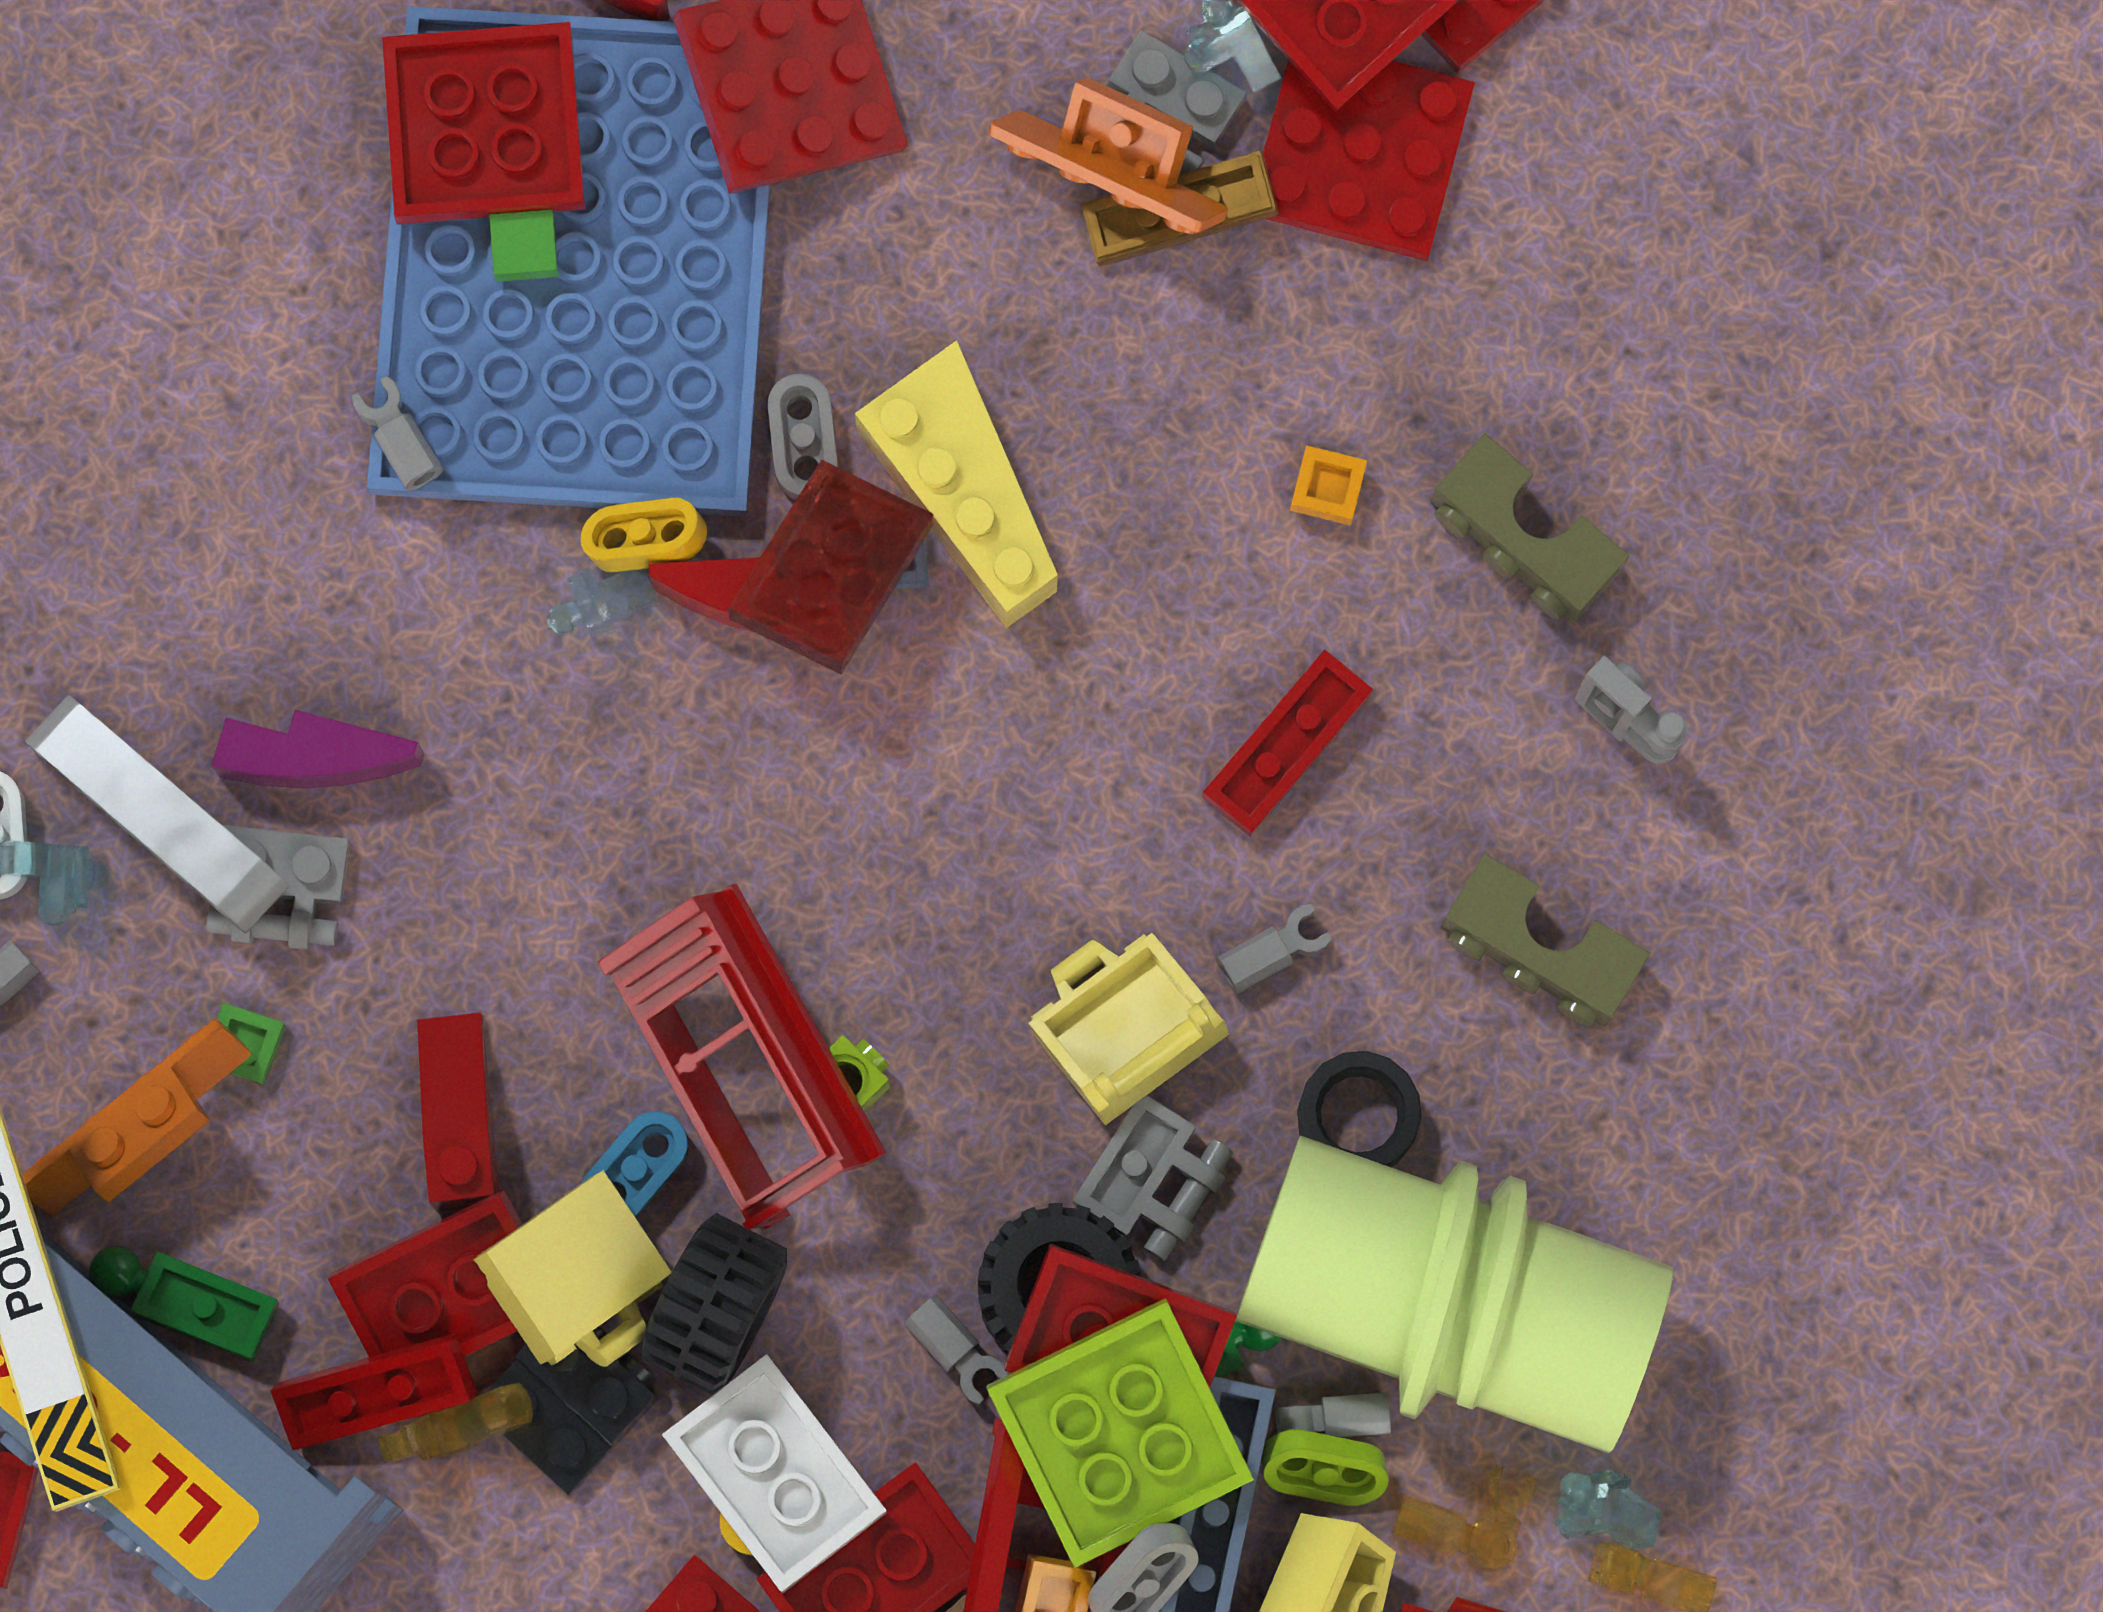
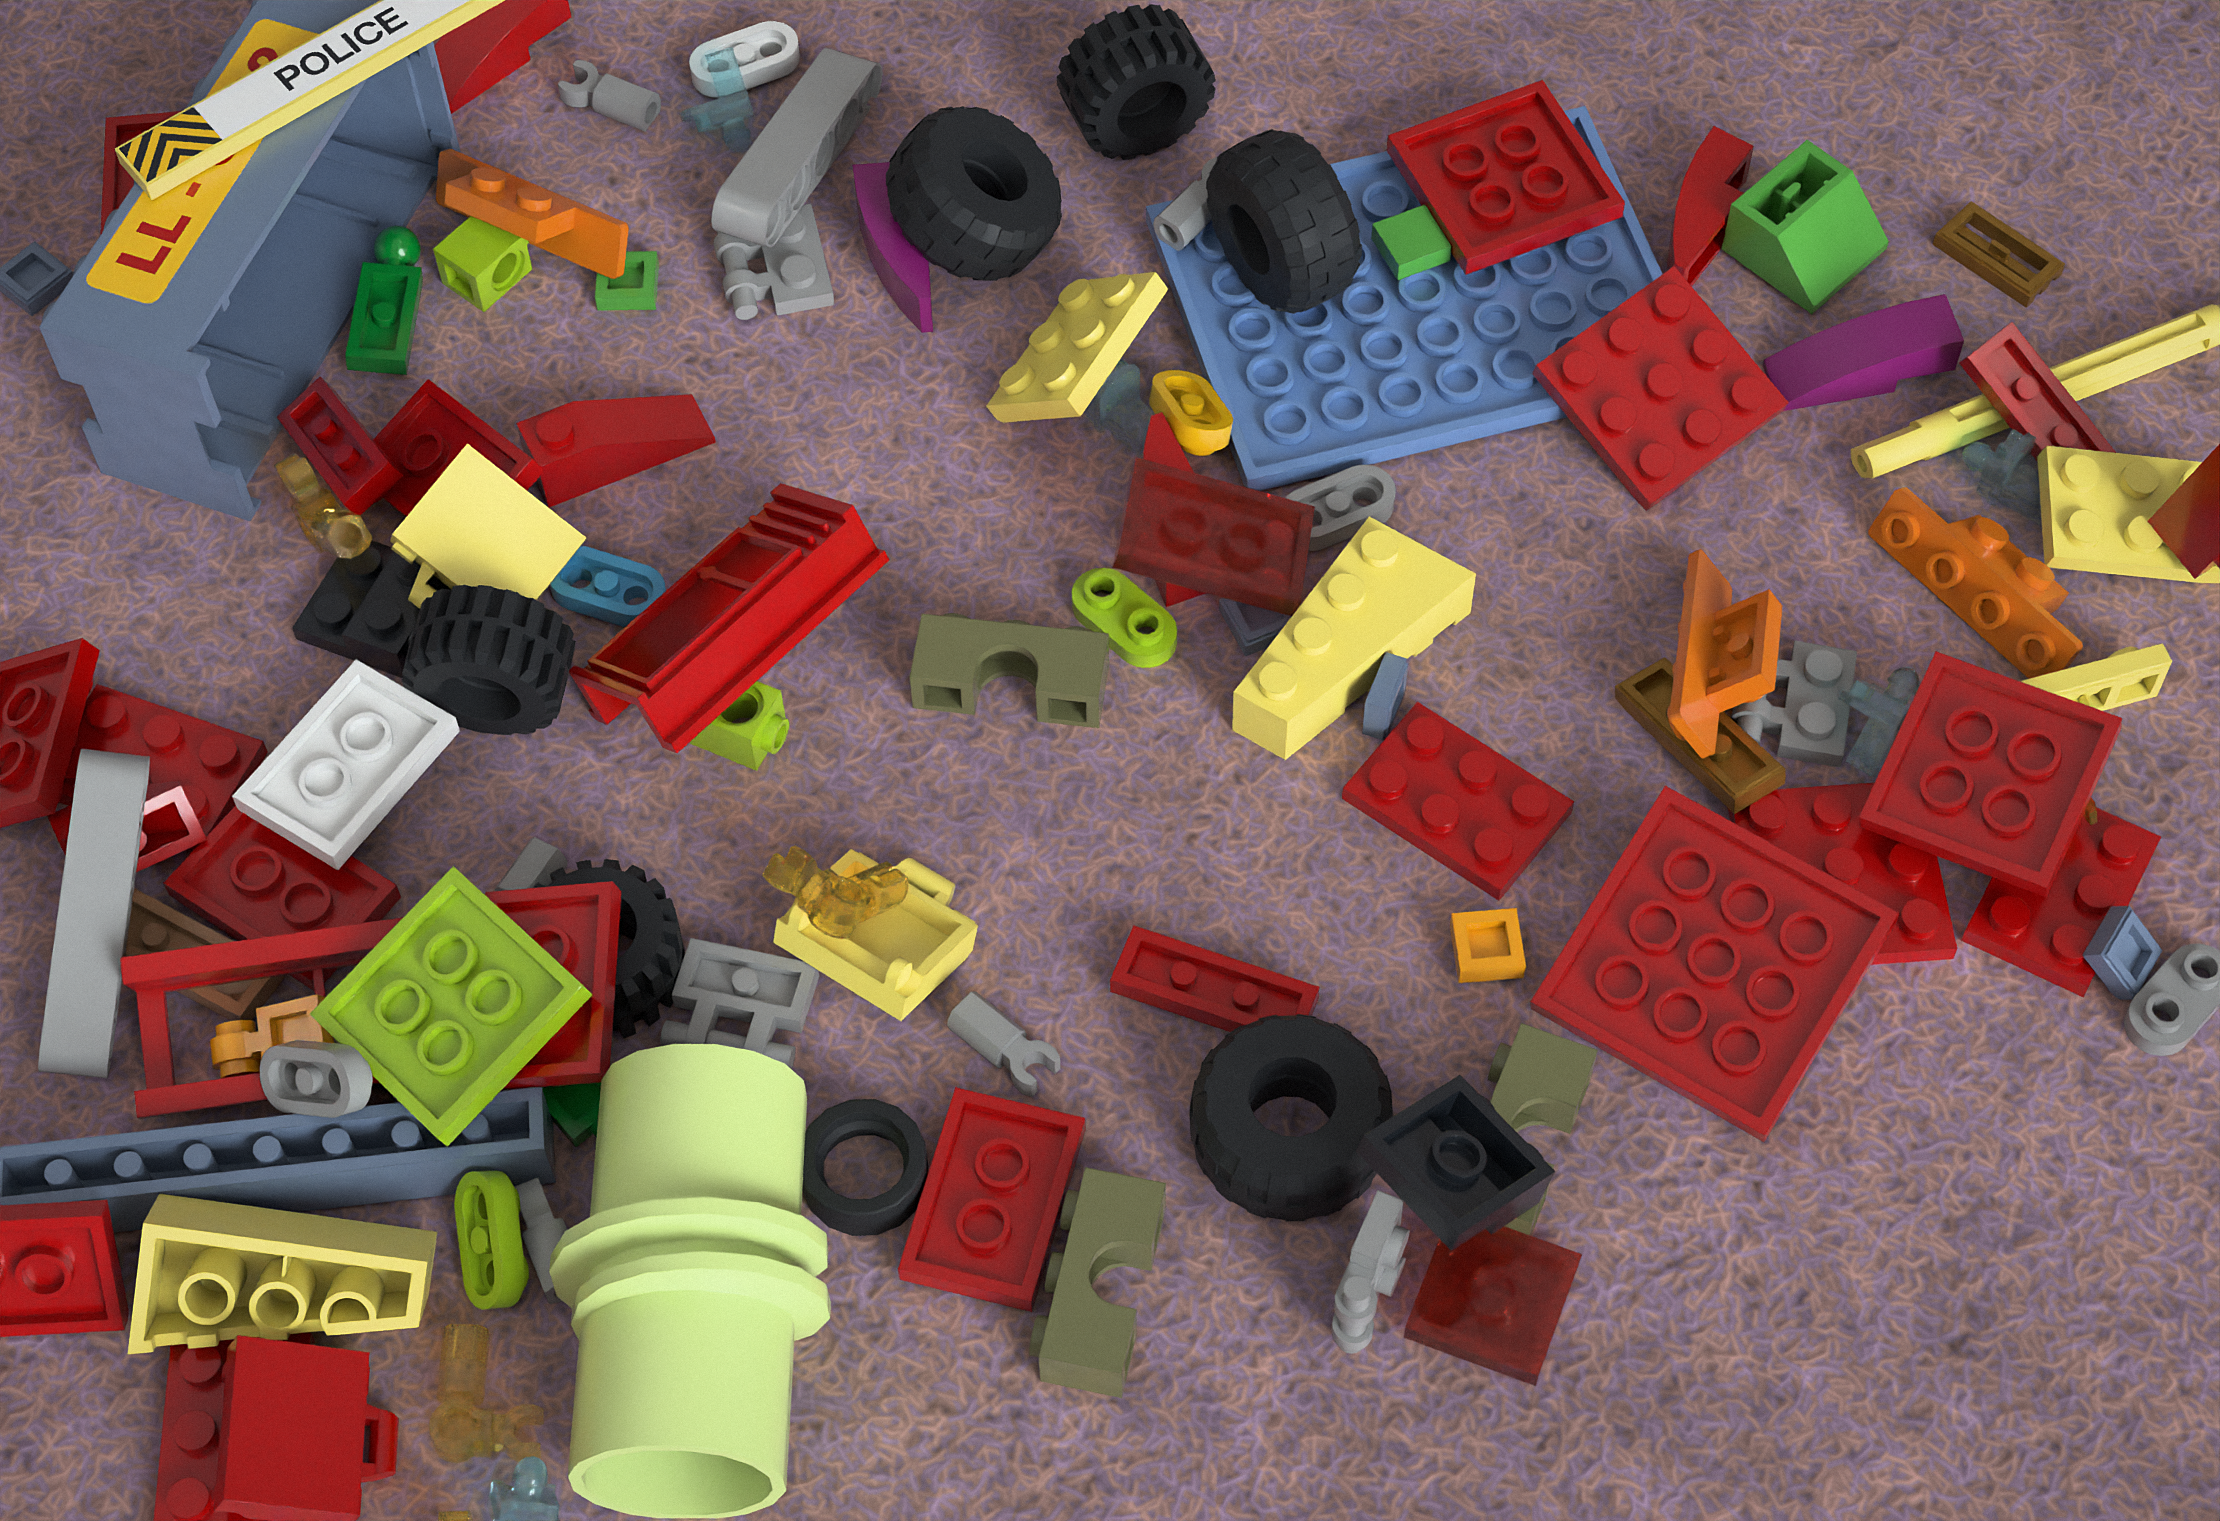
camera: 75 degrees right, 20 degrees down
(174, 1192) = (481, 262): none -> lime brick
(224, 441) = (1135, 82): none -> black tyre
(311, 654) = (973, 193): none -> black tyre
(493, 362) = (1284, 221): none -> black tyre
(528, 618) = (1076, 347): none -> light yellow plate
(853, 690) = (1123, 615): none -> lime plate
(899, 759) = (963, 654): none -> olive arch
(1038, 474) = (1385, 696): none -> sand blue tile
(1114, 1052) = (833, 901): none -> clear yellow bar
(1162, 452) = (1458, 800): none -> red plate
(1426, 296) = (1714, 962): none -> red plate
(1427, 1009) = (992, 1199): none -> red plate
(1473, 666) = (1278, 1173): none -> black tyre
(1580, 596) = (1457, 1163): none -> black plate
(1666, 614) = (1494, 1301): none -> clear red plate

